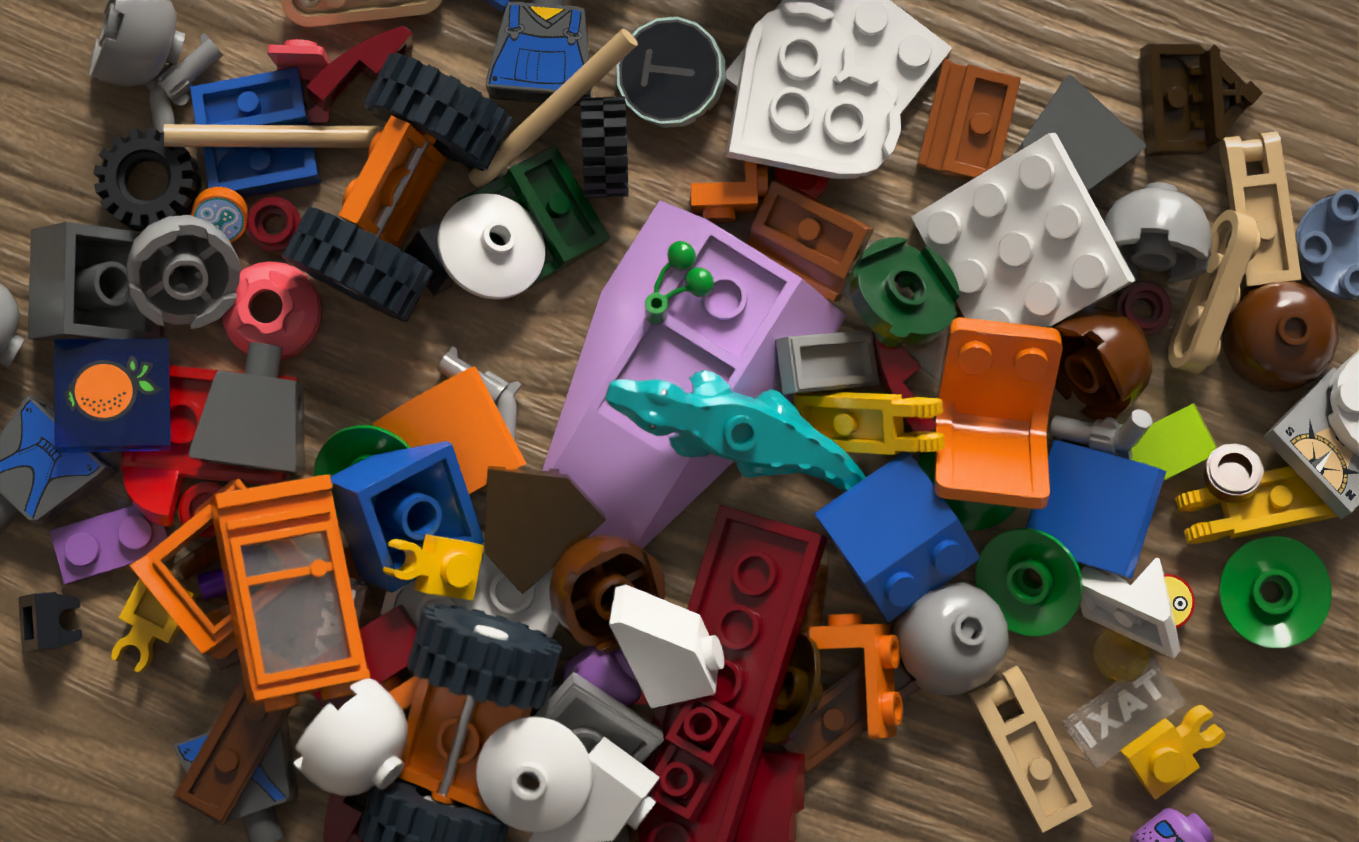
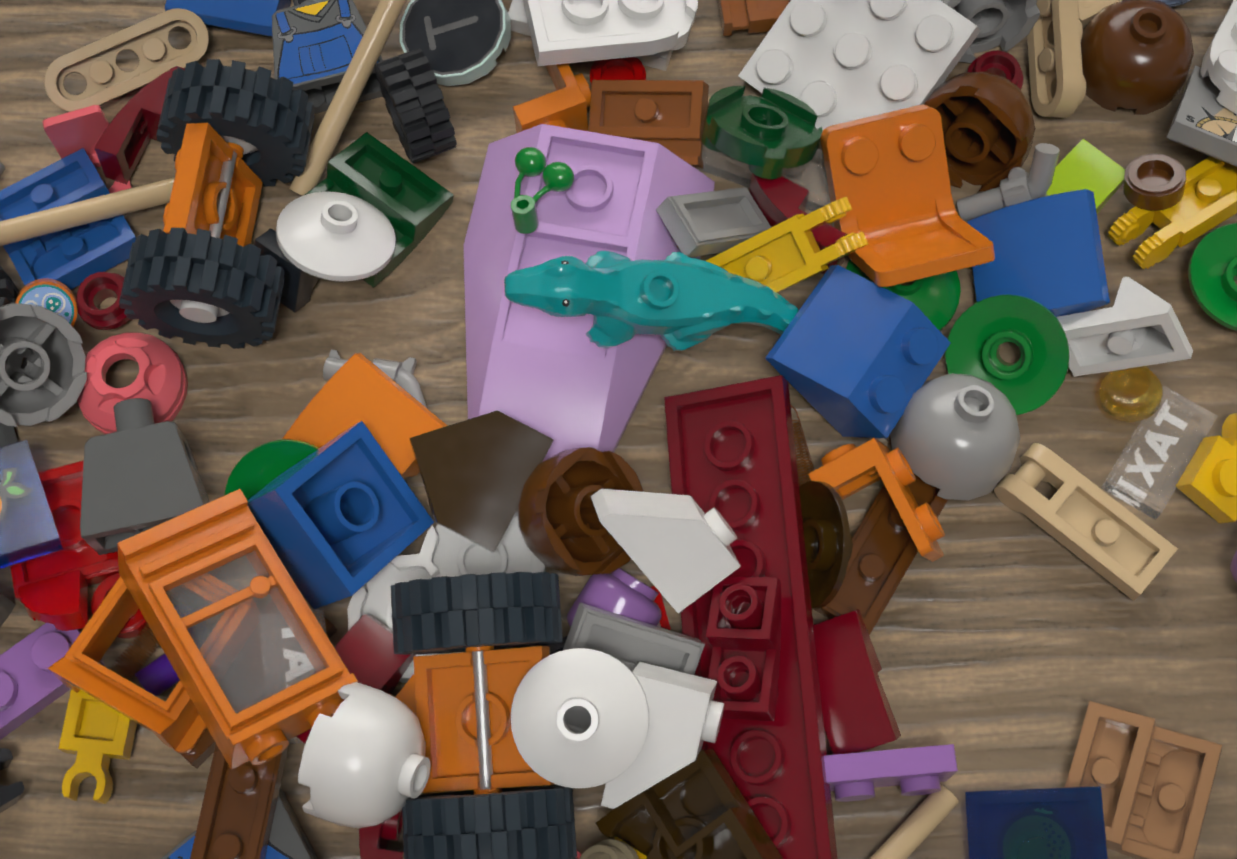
camera: 20 degrees left, 15 degrees down
(441, 567) = (394, 547): yellow plate -> none

